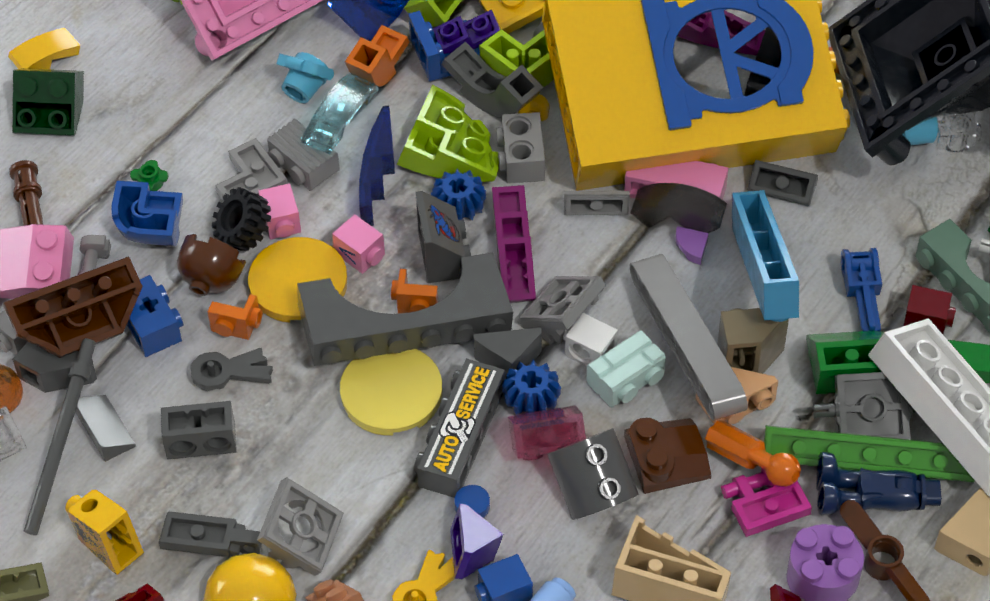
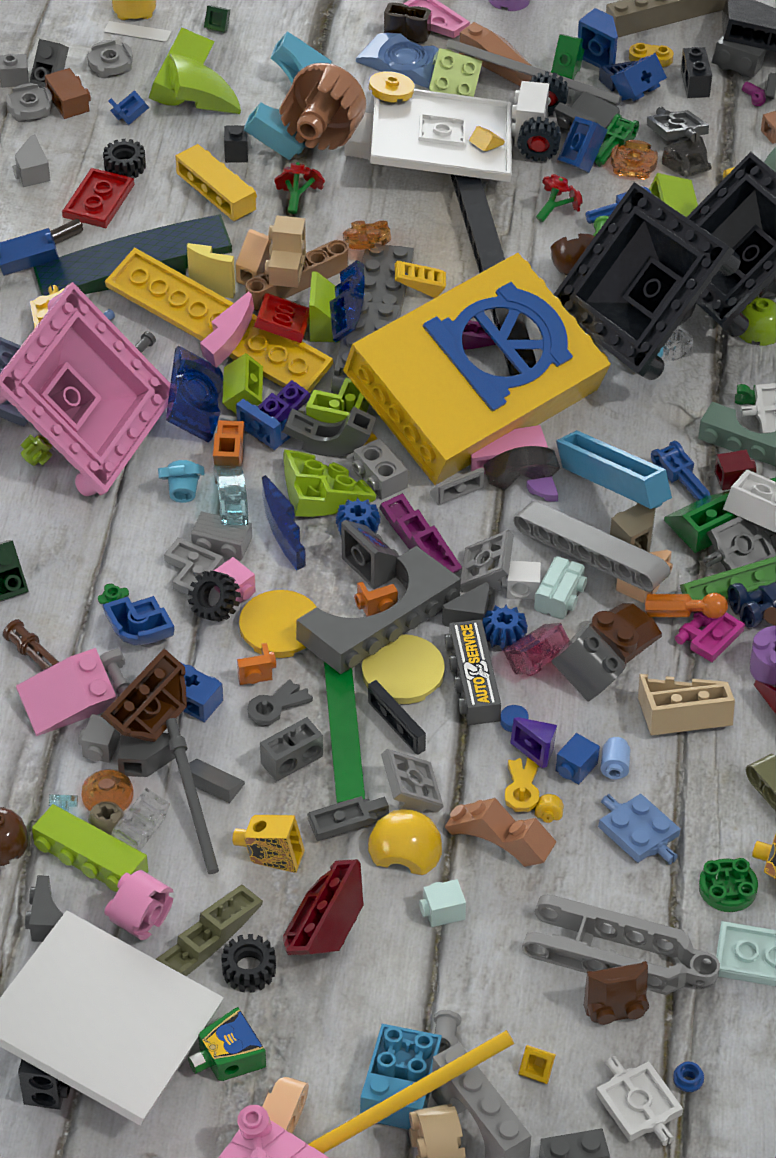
camera: 30 degrees left, 5 degrees down
(209, 265) = (214, 636): reddish brown cylinder -> none
(273, 440) = (344, 734): none -> green tile
(339, 443) = (396, 717): none -> black tile
(359, 244) = (311, 579): bright pink brick -> none
(783, 182) = (585, 421): dark grey slope -> none

